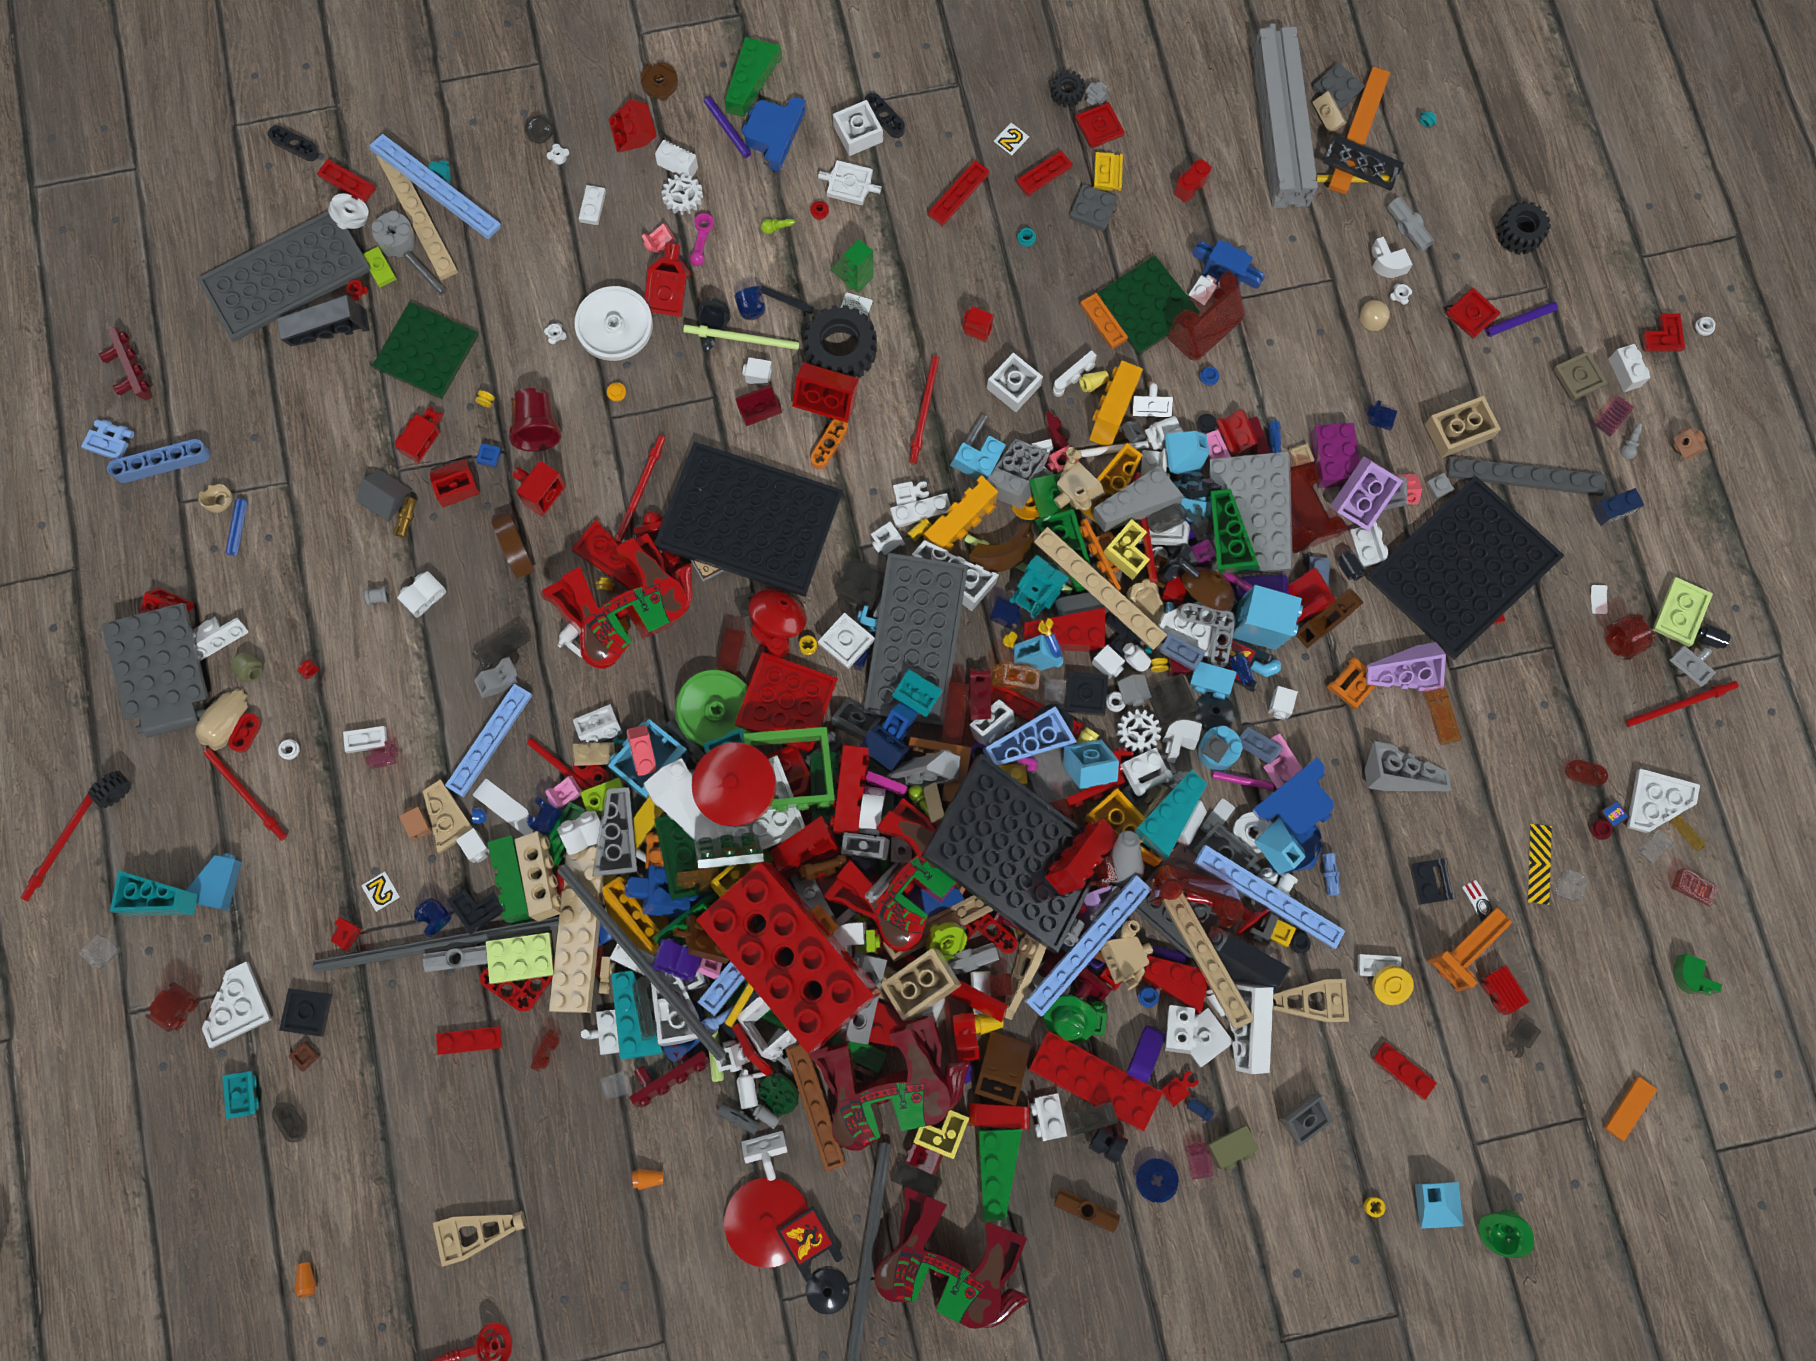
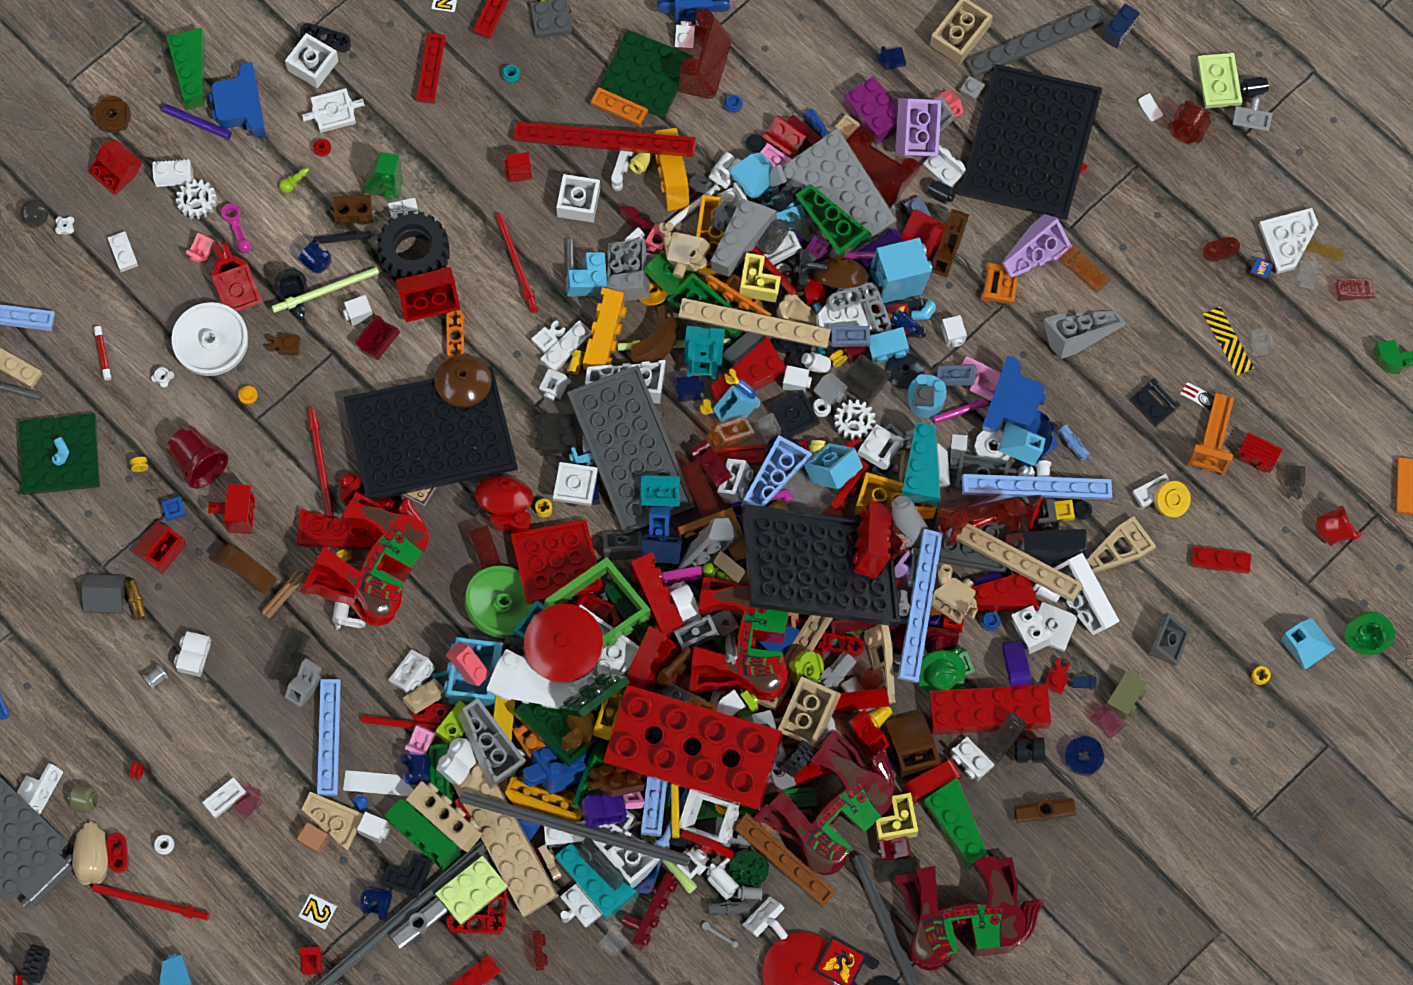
camera: 30 degrees left, 5 degrees down
(419, 435) = (102, 526): red brick -> none
(426, 350) = (62, 453): none -> medium azure arm
(518, 283) = (102, 353): none -> red bar
(531, 587) = (283, 594): none -> medium nougat axle
(678, 366) = (286, 344): none -> reddish brown plate
(709, 1121) = (706, 926): none -> light grey hinge
(804, 498) = (464, 390): none -> reddish brown dish
(813, 276) = (353, 205): none -> reddish brown brick
(881, 1023) = (797, 758): none -> black tyre
(1072, 343) = (605, 139): none -> red plate
(1132, 472) = (723, 216): none -> dark grey bracket
(1152, 404) = (703, 152): white plate -> none
(1181, 734) = (889, 403): white brick -> none
(1206, 464) = (776, 176): none -> light grey tile
(1536, 1109) = (1335, 526): none -> red piece
(1601, 829) = (1259, 286): dark red plate -> none
(1715, 691) = (1282, 128): red bar -> none

